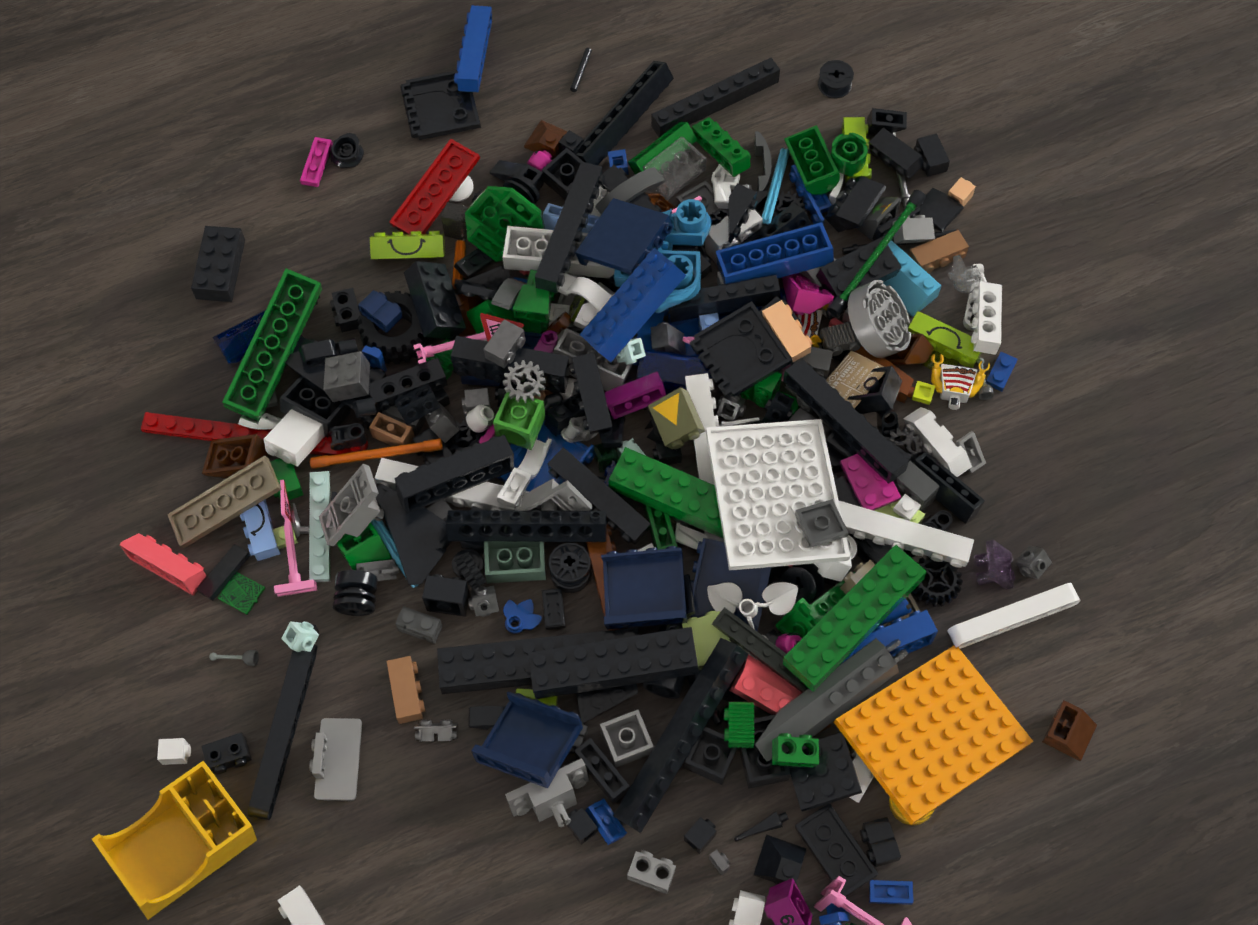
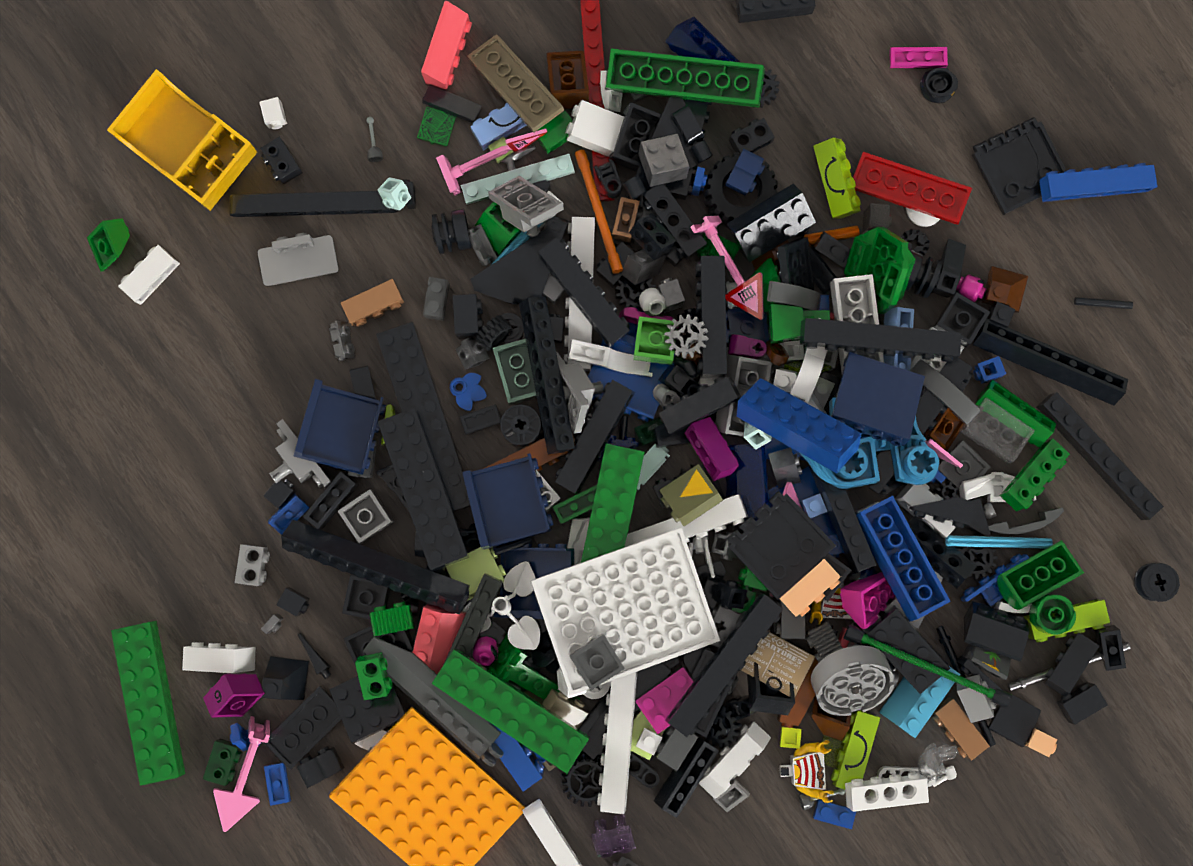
camera: 75 degrees right, 20 degrees up
(504, 343) = (722, 307): flat silver brick -> none

